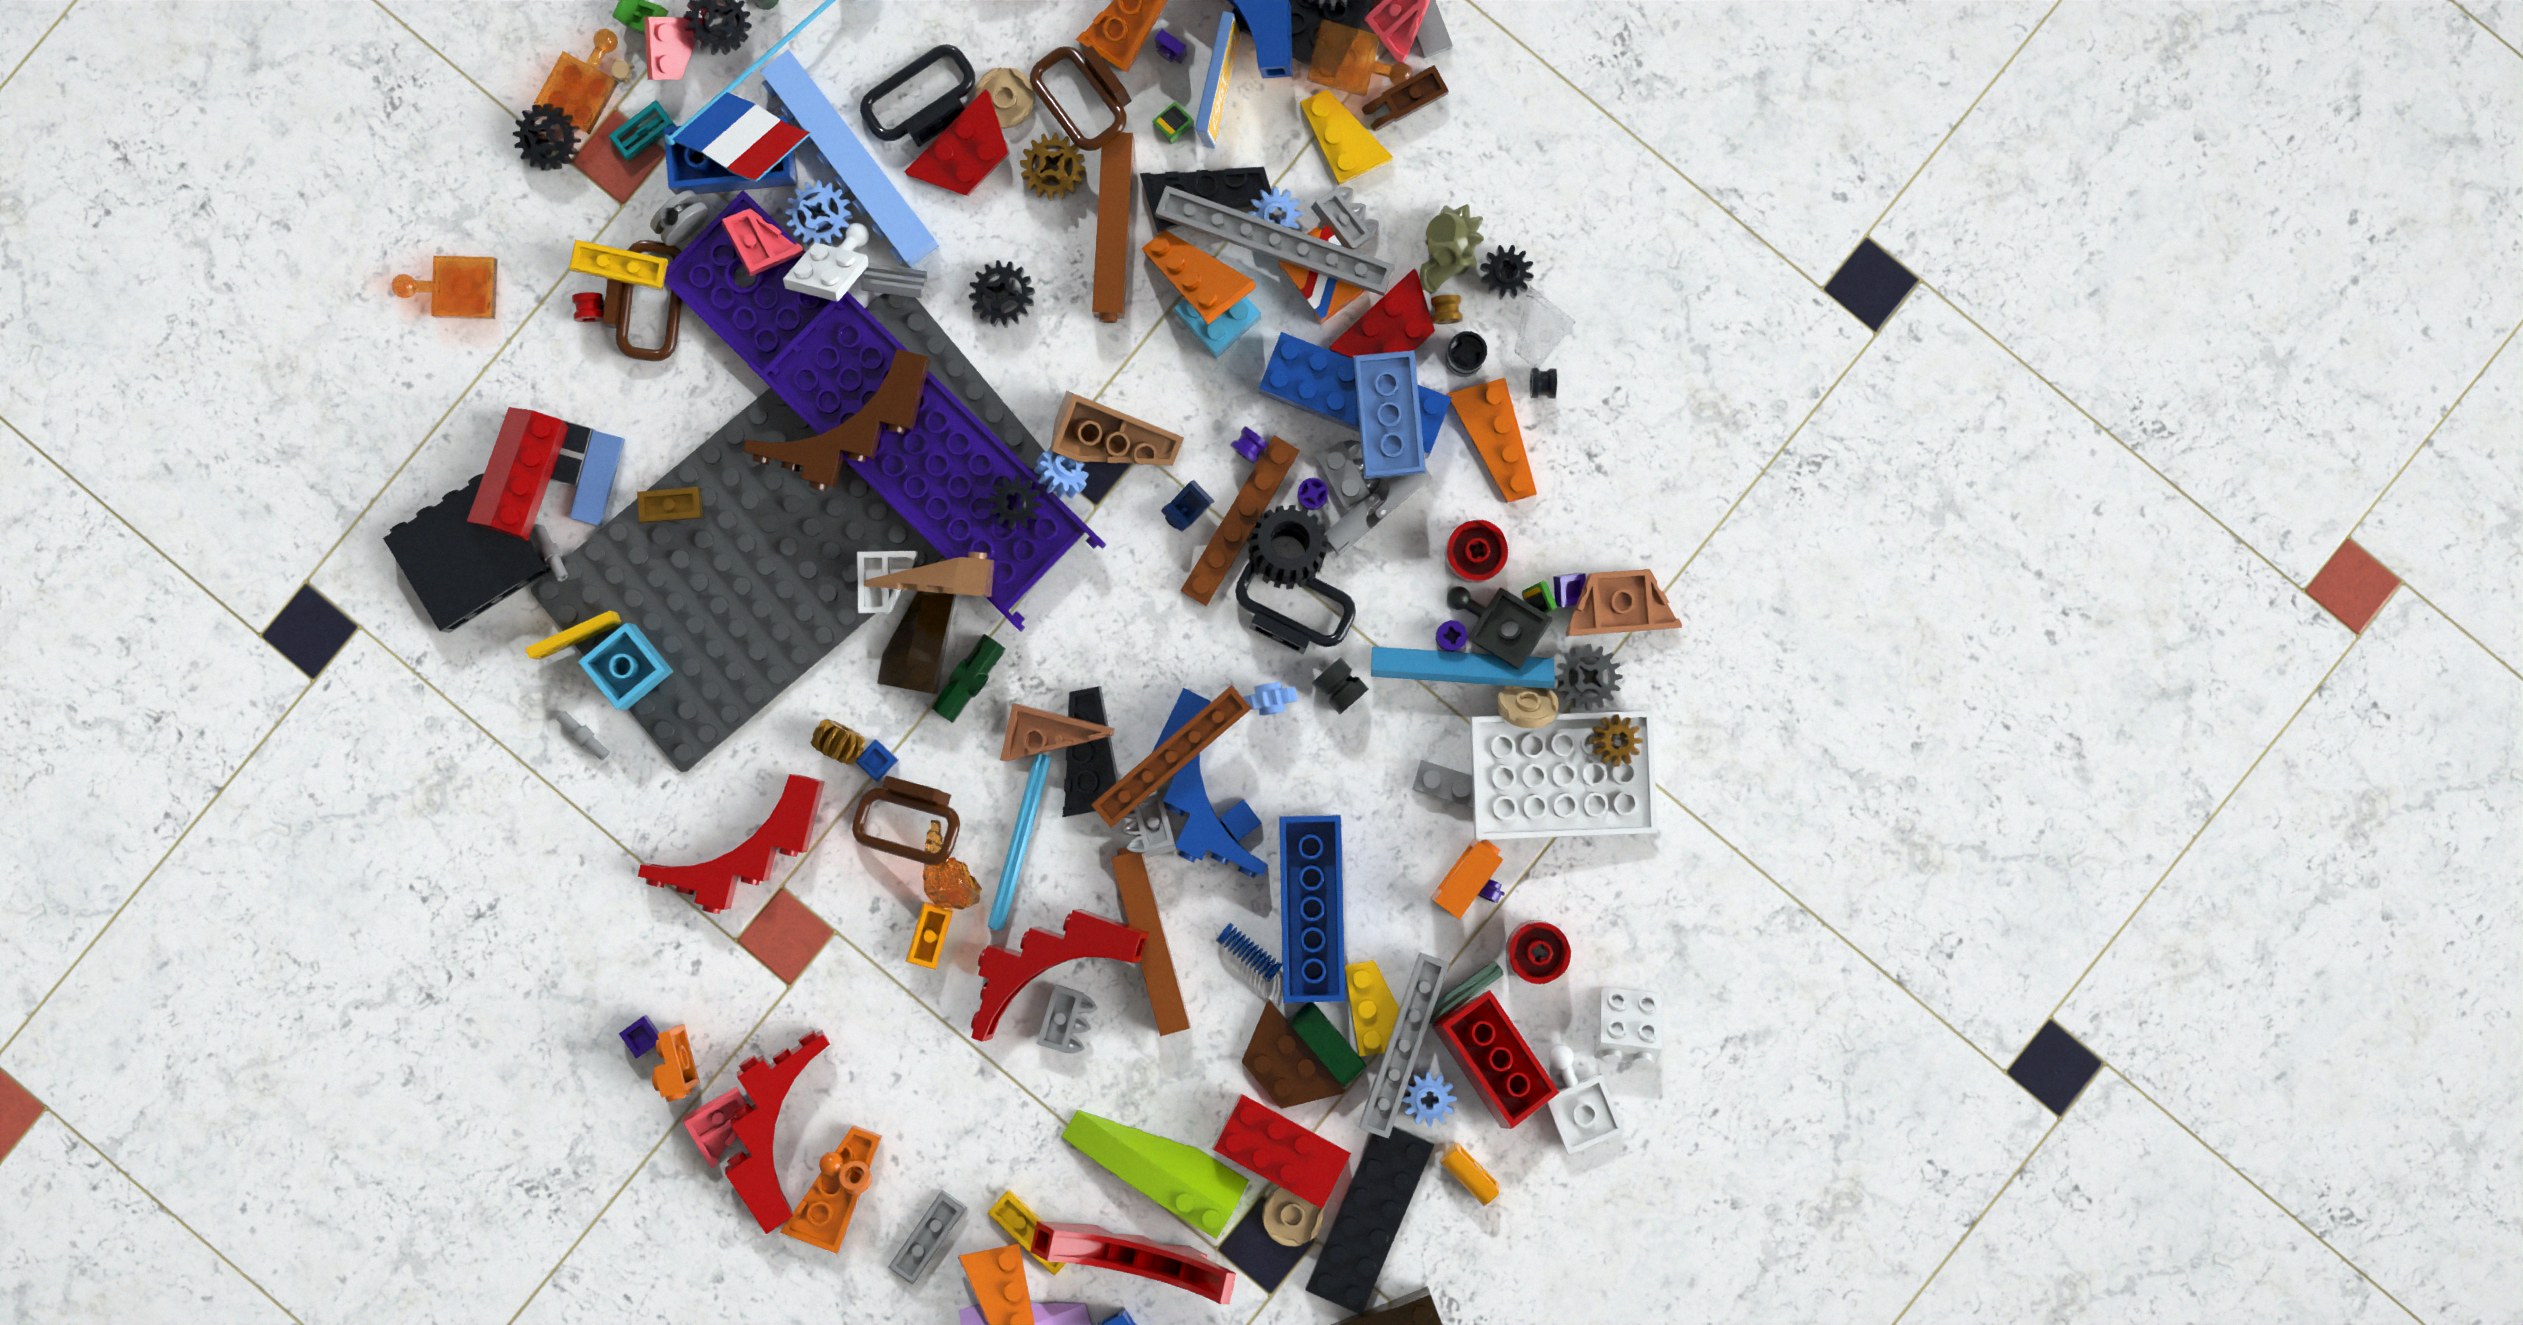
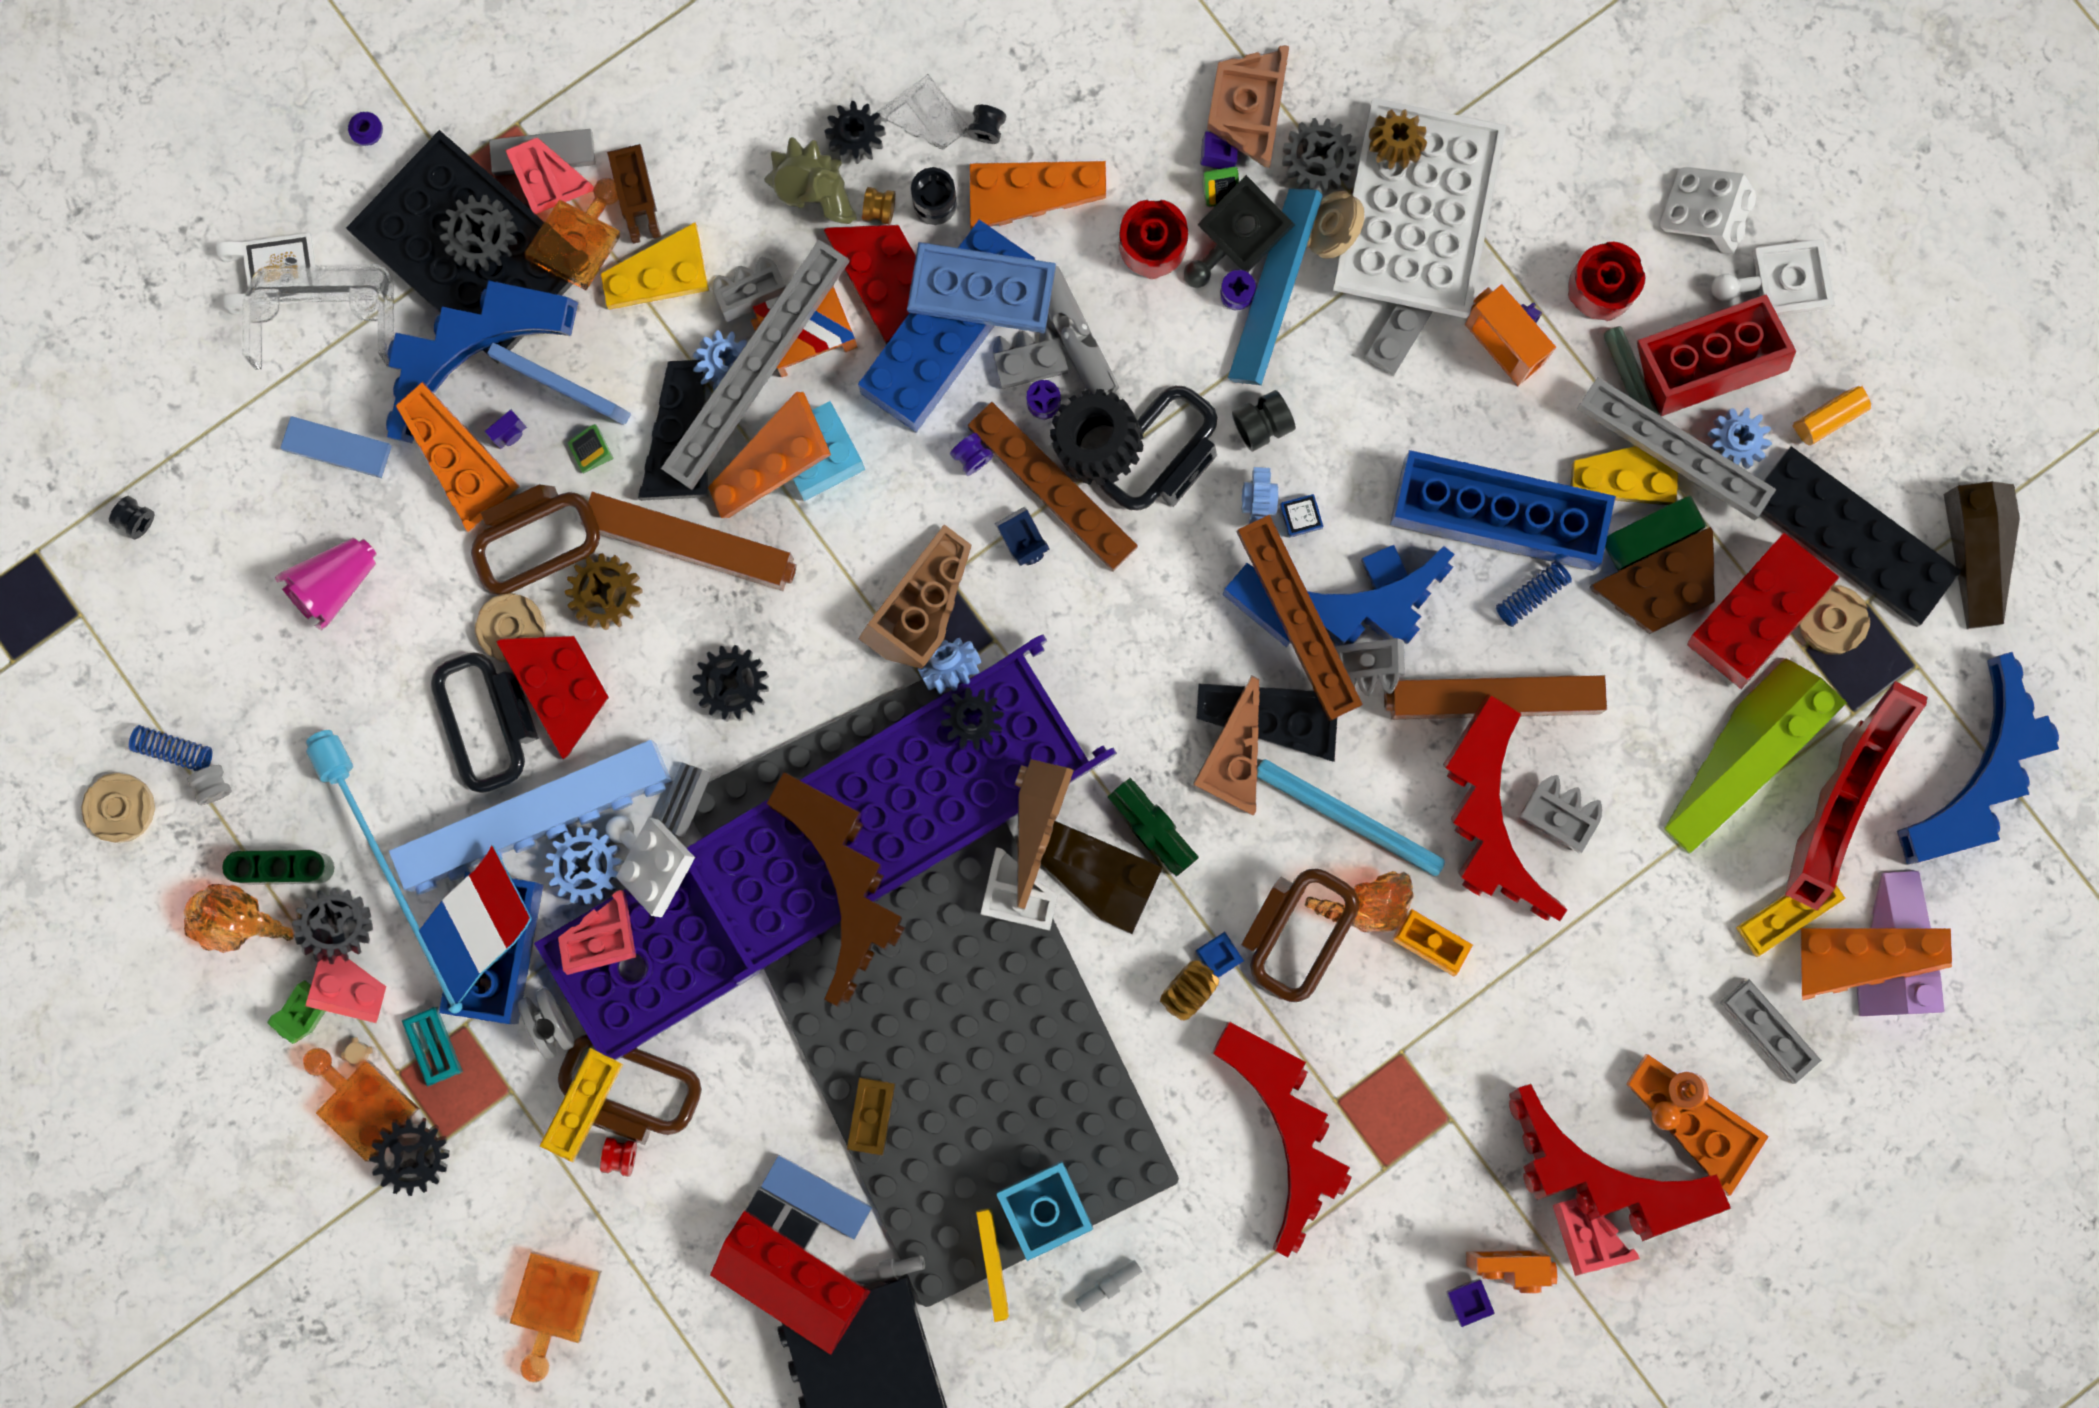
camera: 75 degrees left, 5 degrees down
(1268, 738) = (1301, 515): none -> tile

